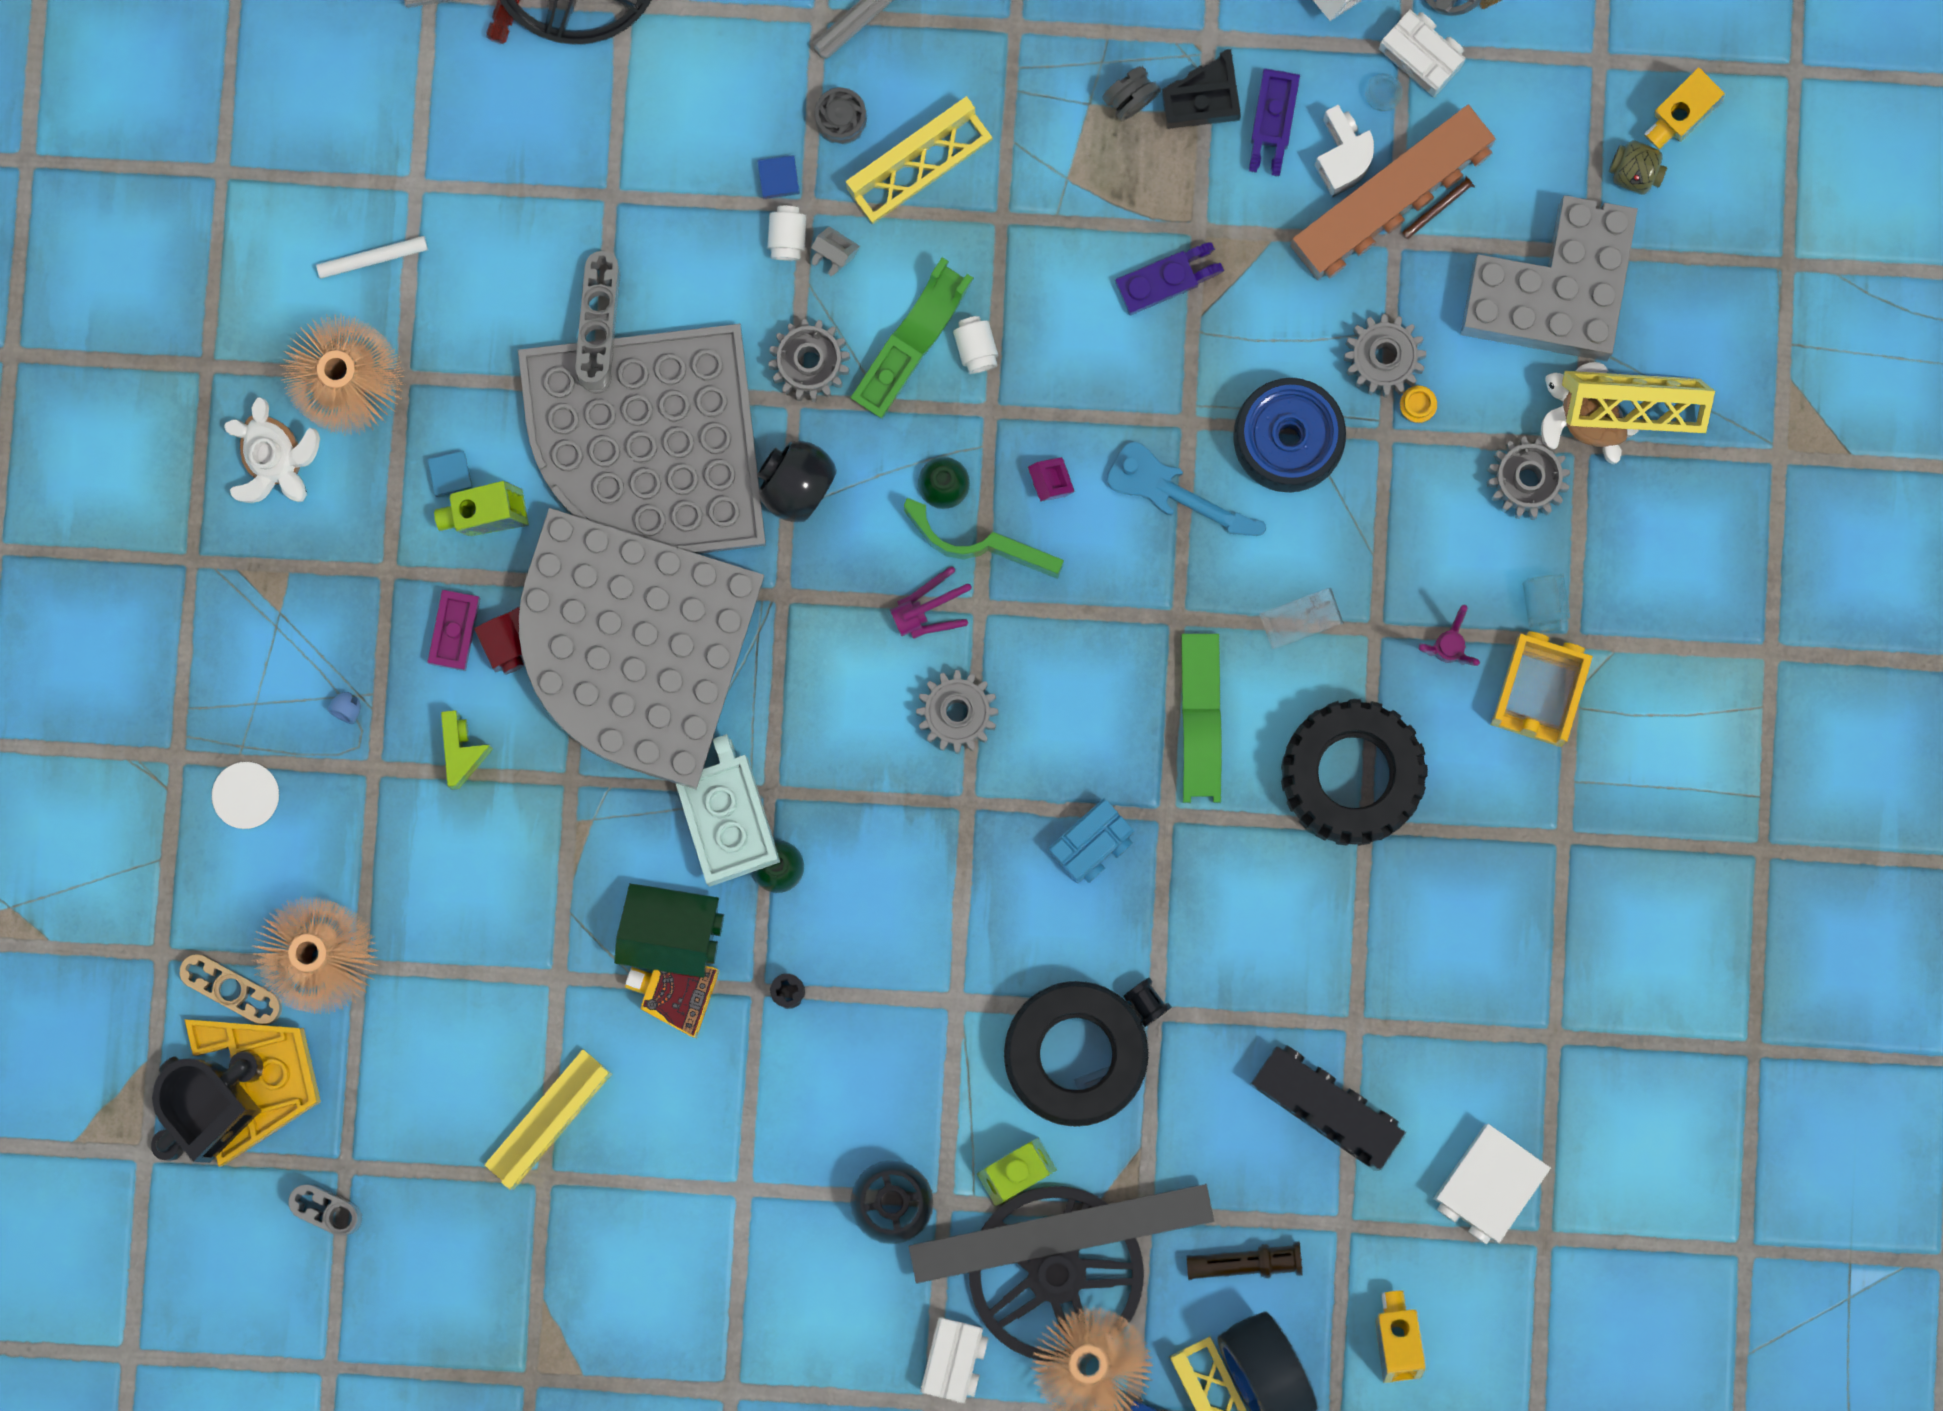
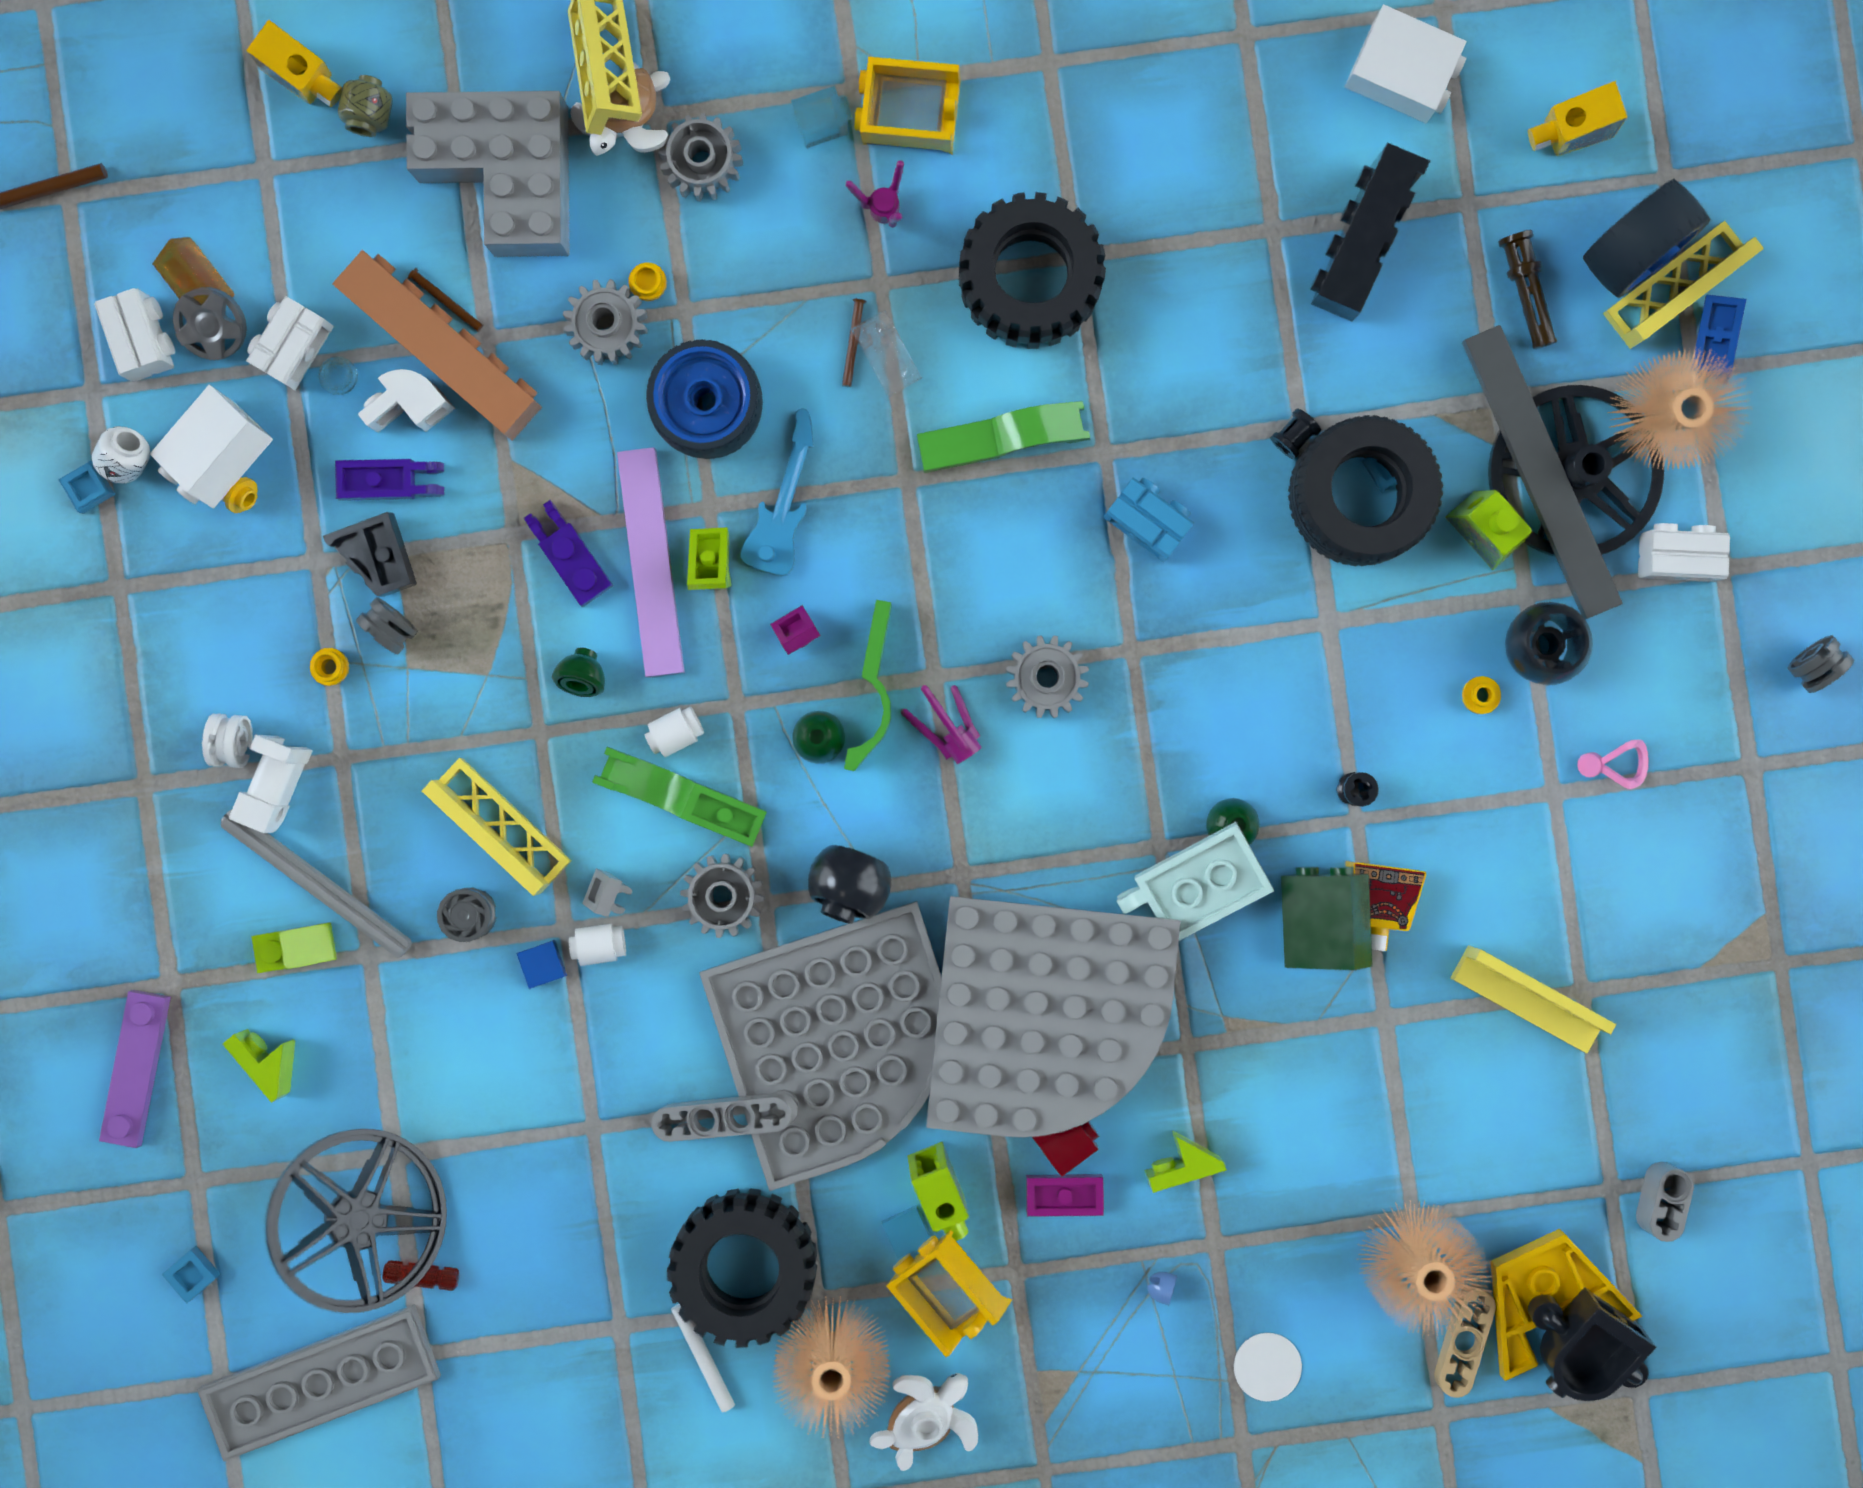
camera: 105 degrees left, 5 degrees up
(387, 496) = (946, 1292): none -> yellow window
(430, 266) = (733, 1316): none -> black tyre
(763, 1229) = (1593, 764): none -> bright pink piece
(867, 1133) = (1470, 699): none -> yellow plate
(1049, 266) = (580, 674): none -> dark green brick
(1104, 20) = (318, 663): none -> yellow plate
(1134, 409) = (708, 559): none -> lime slope
(1144, 354) = (650, 562): none -> lavender tile
(1314, 588) = (852, 344): none -> reddish brown piece

